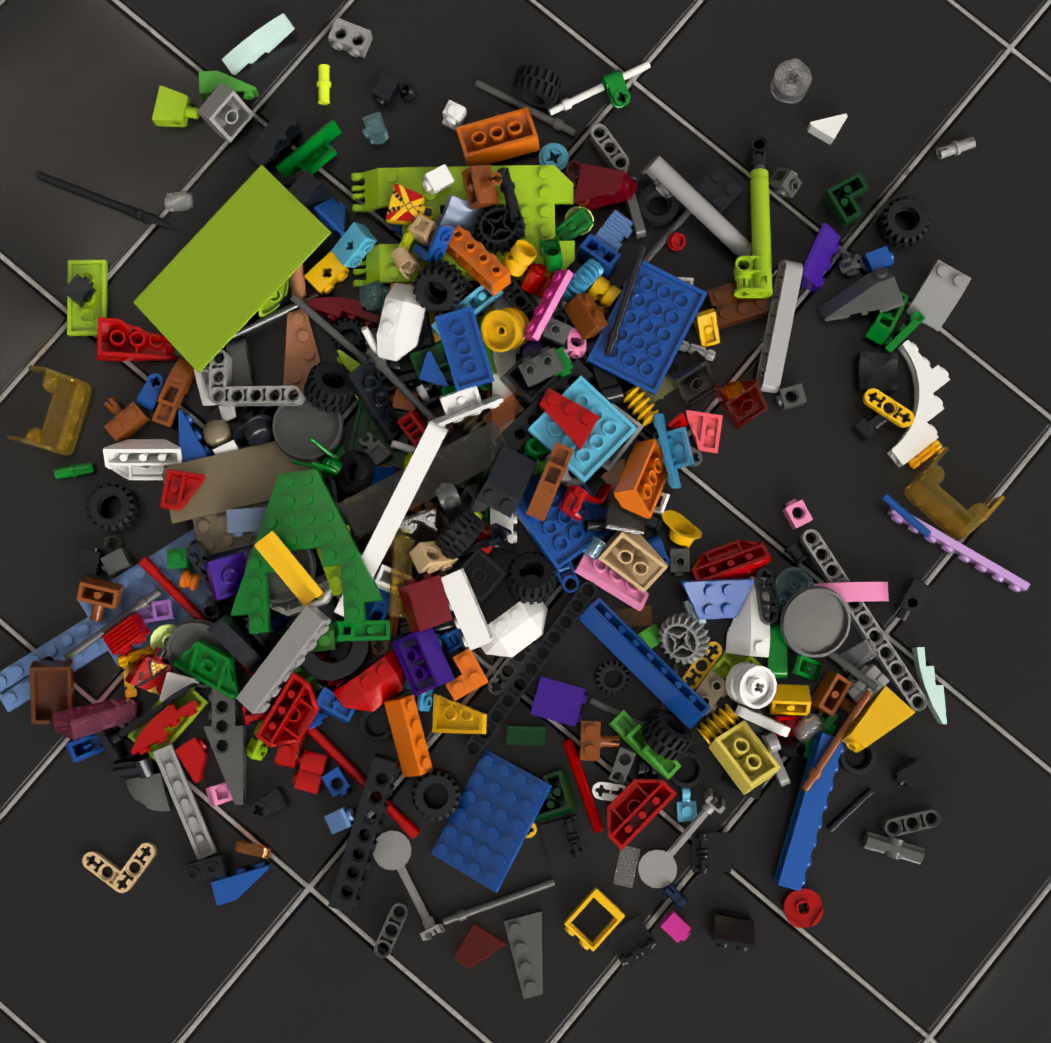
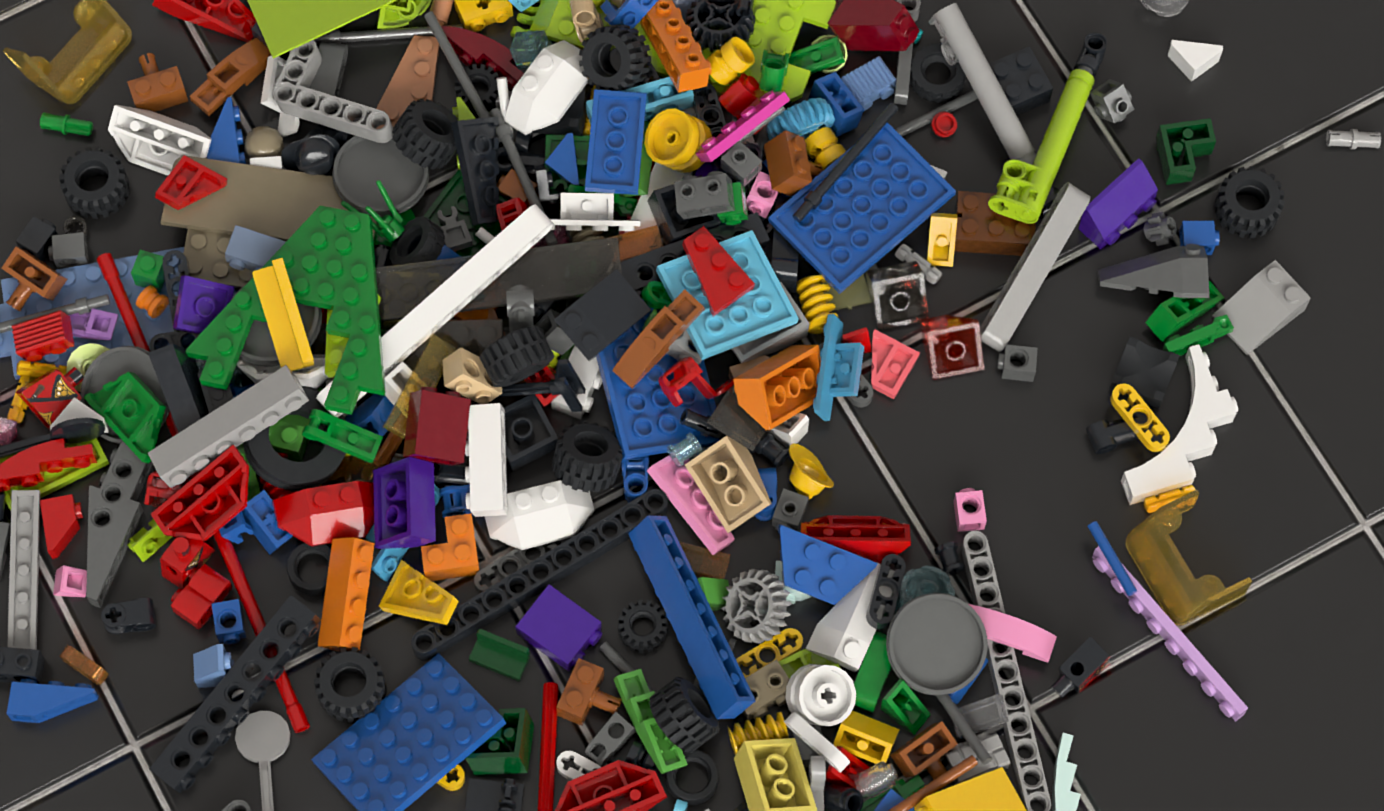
camera: 20 degrees right, 15 degrees down
(150, 392) = (195, 70): blue piece -> none

